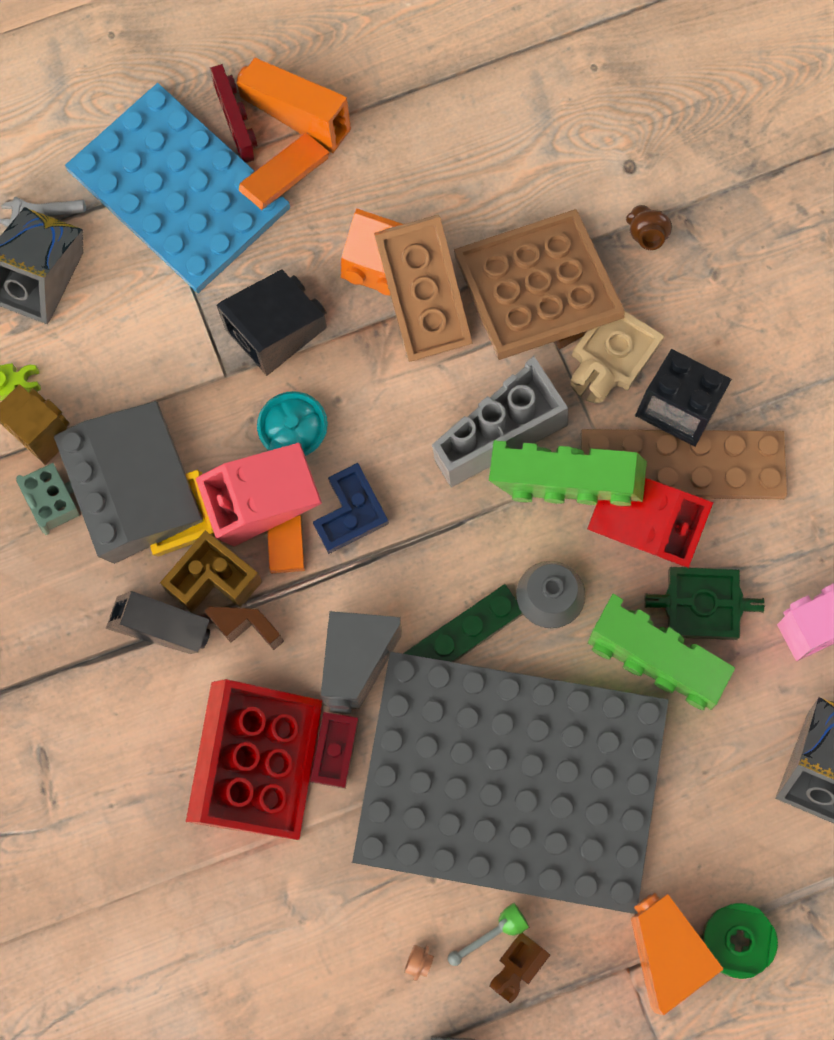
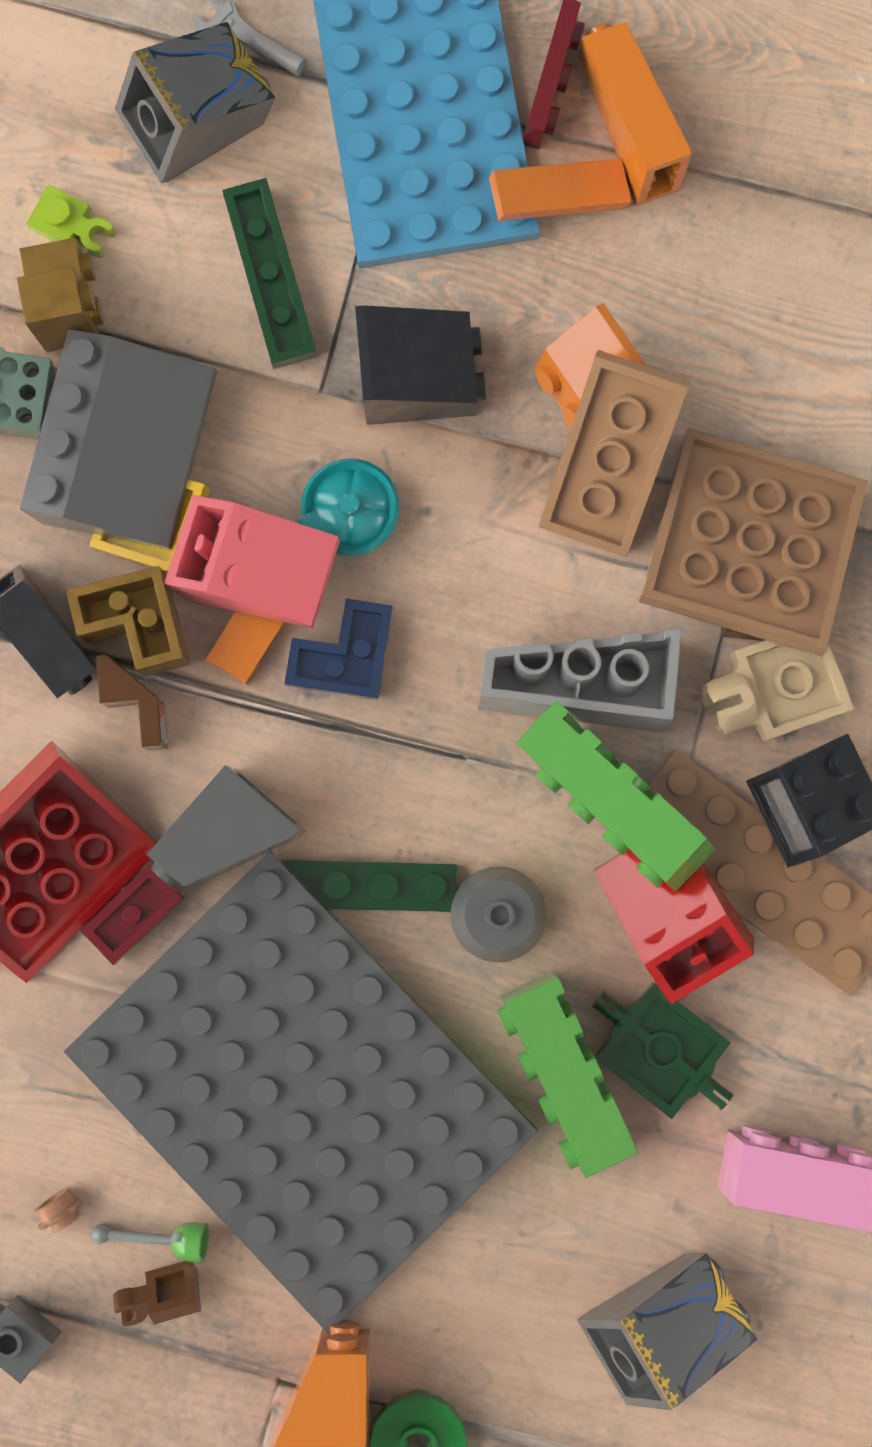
camera: 30 degrees right, 10 degrees up
(148, 329) = (269, 273): none -> dark green plate

